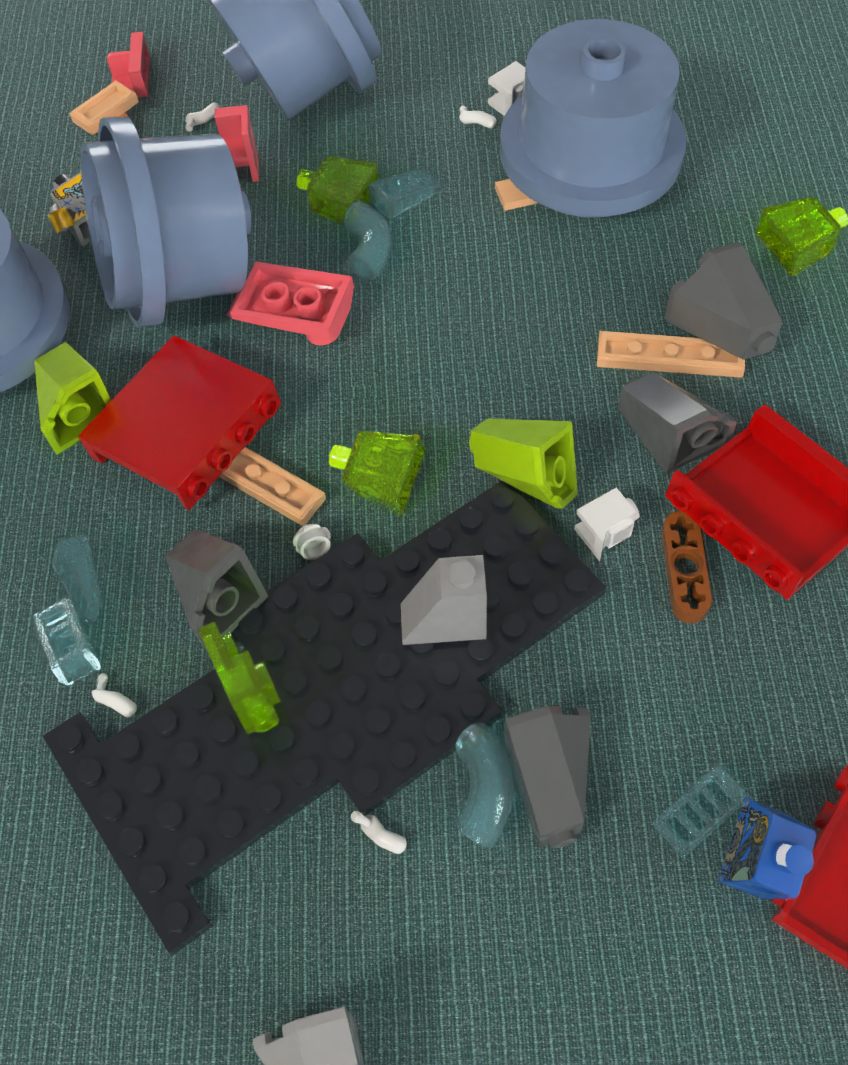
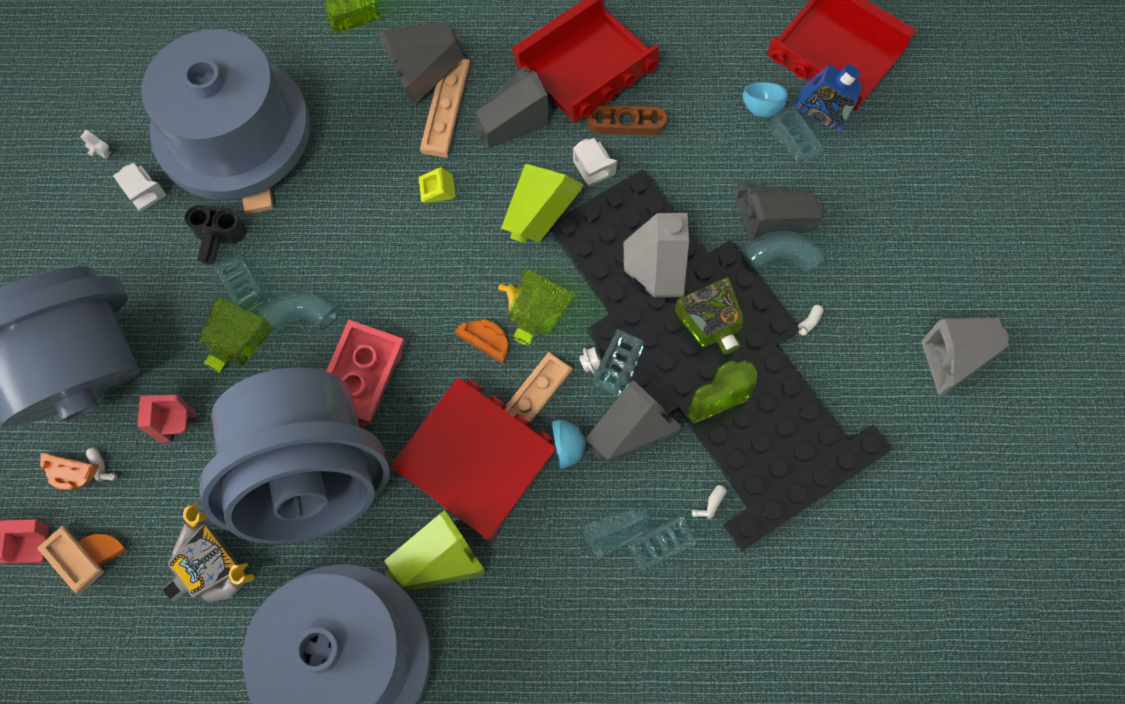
camera: 90 degrees left, 10 degrees up
(192, 507) = (569, 442): none -> medium azure piece
(194, 97) = (67, 472): none -> orange tile
(279, 560) = (627, 367): none -> clear light blue slope
(343, 426) = (486, 337): none -> orange tile
(365, 675) = (712, 315): none -> torso
(468, 156) = (213, 230): none -> black beam
(478, 117) = (160, 221): white piece -> none
(551, 358) = (437, 186): none -> neon yellow slope
(755, 754) = (765, 99): none -> medium azure piece

